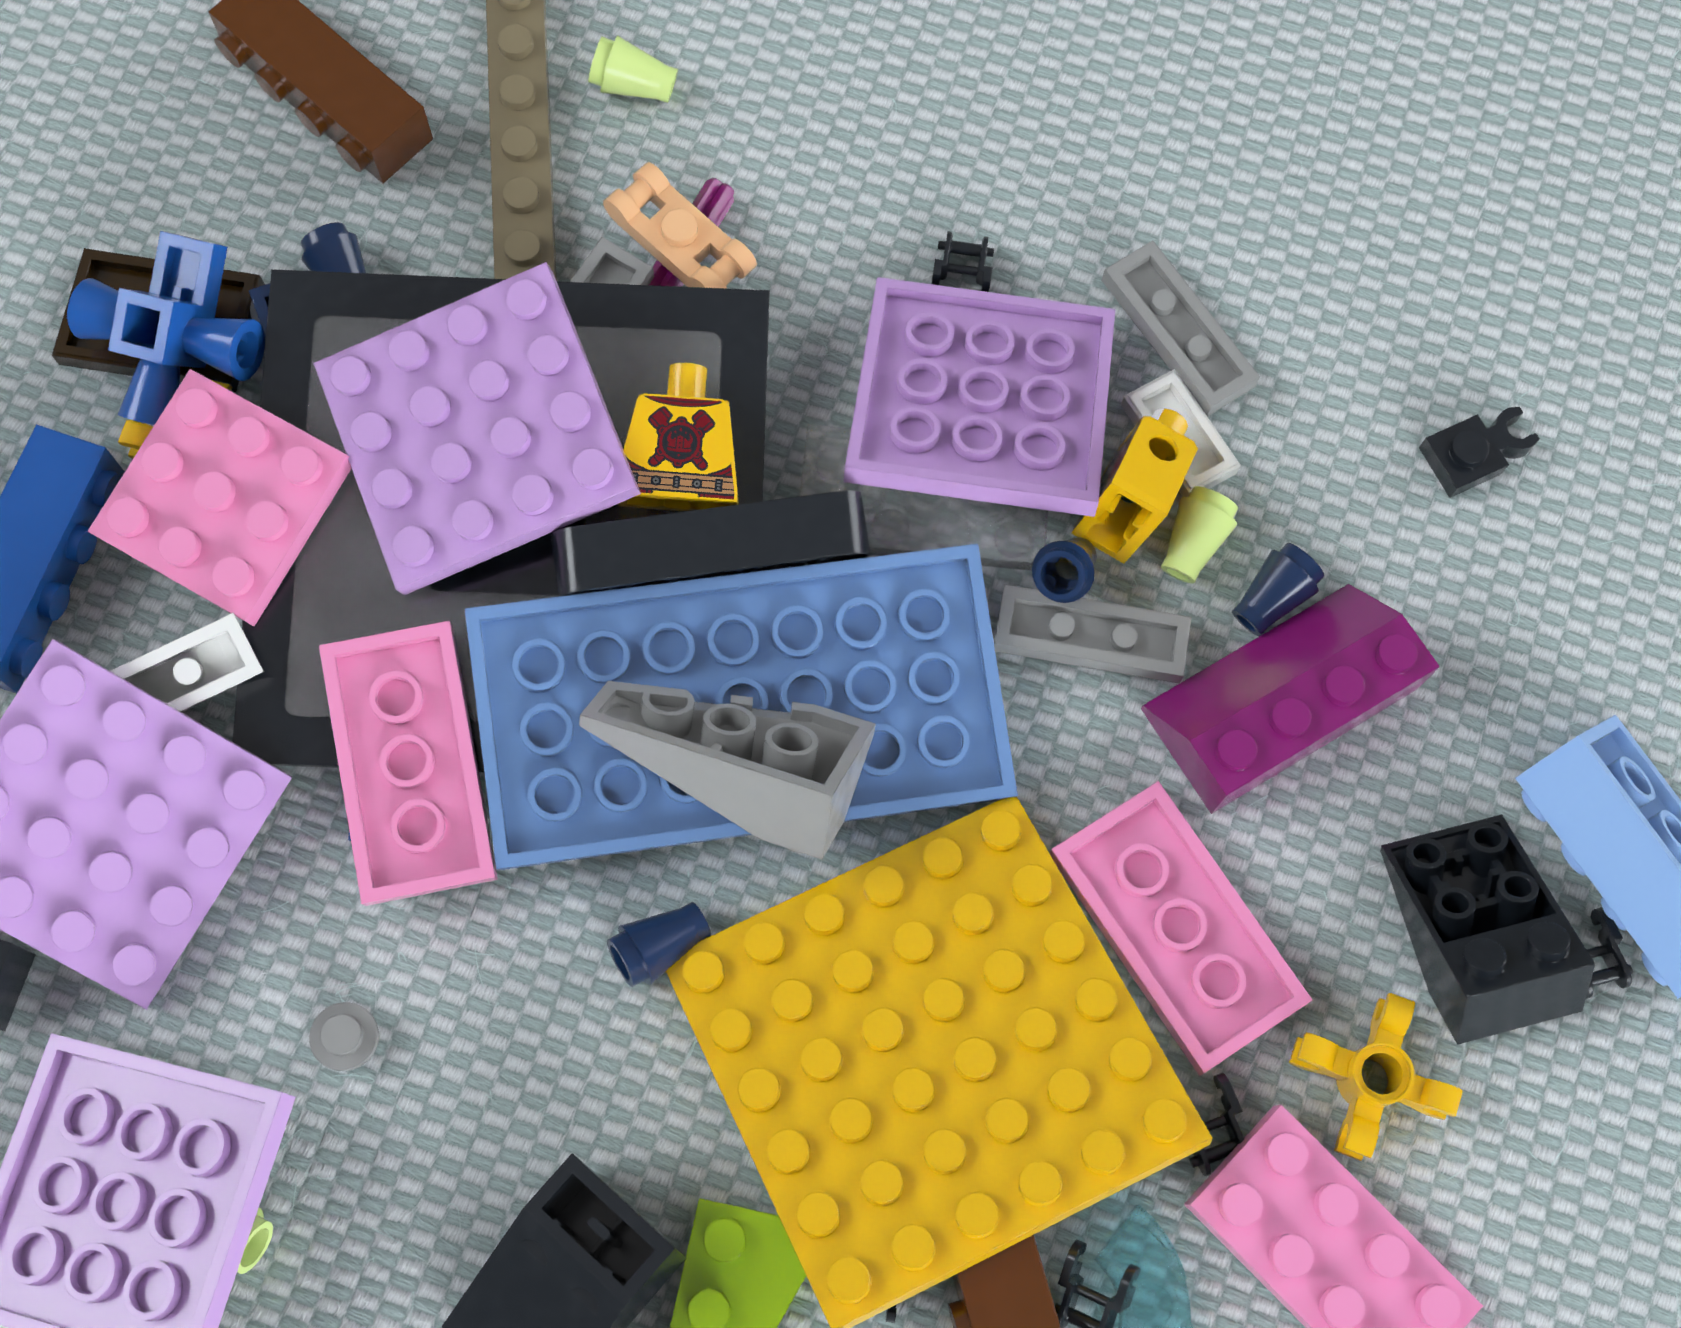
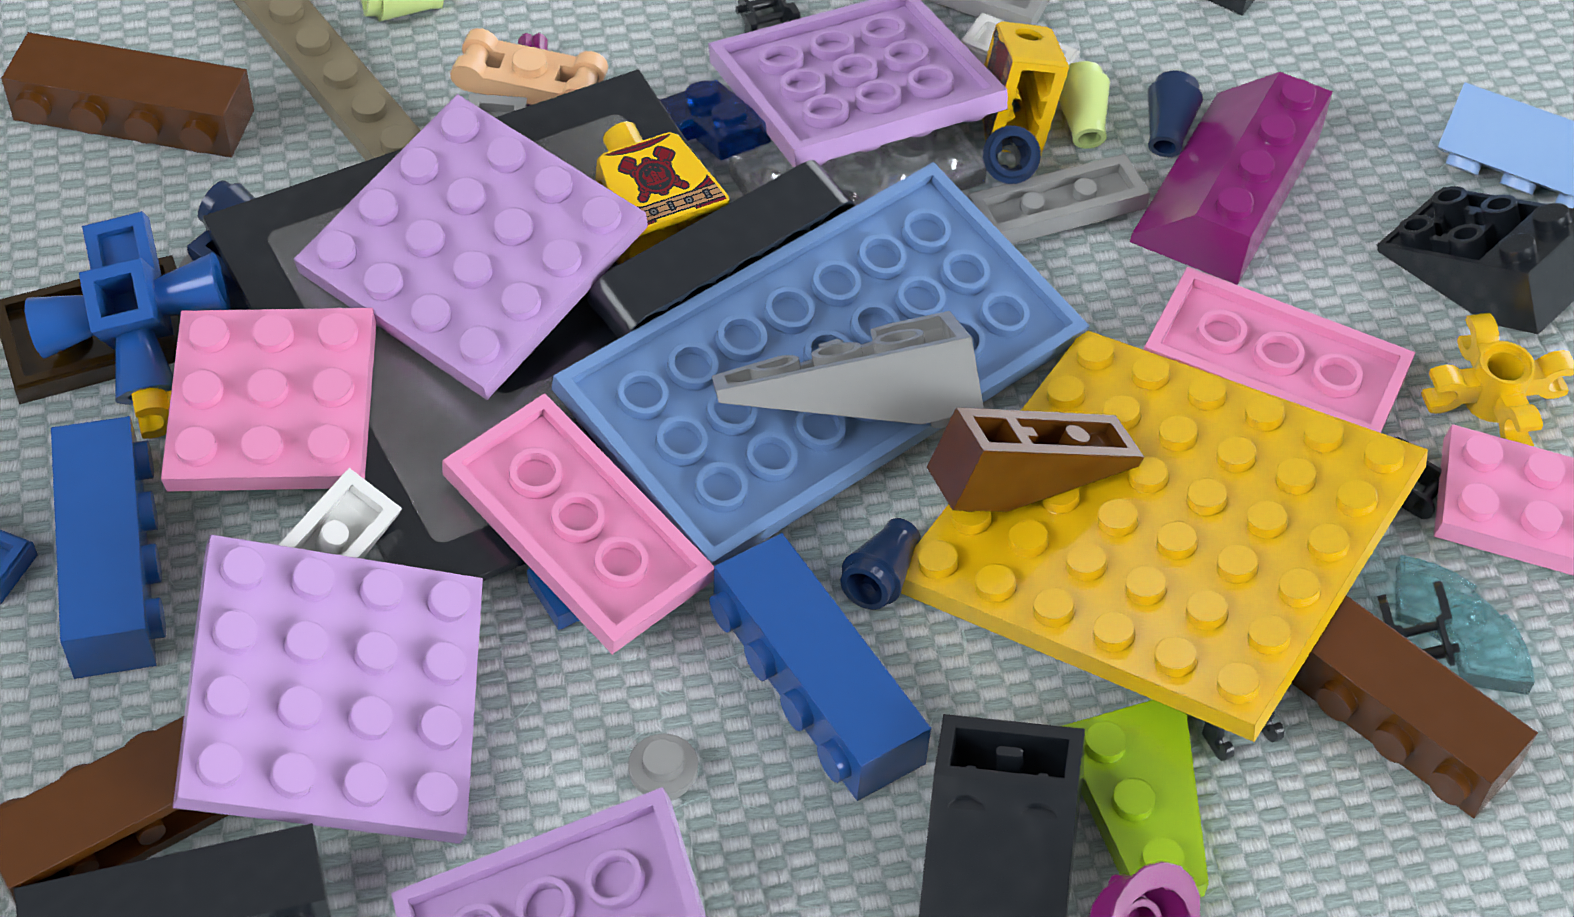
camera: 30 degrees left, 20 degrees down
(528, 1018) = (819, 667): none -> blue brick
(825, 363) = (716, 119): none -> clear blue plate
(839, 928) = (1020, 457): none -> reddish brown slope

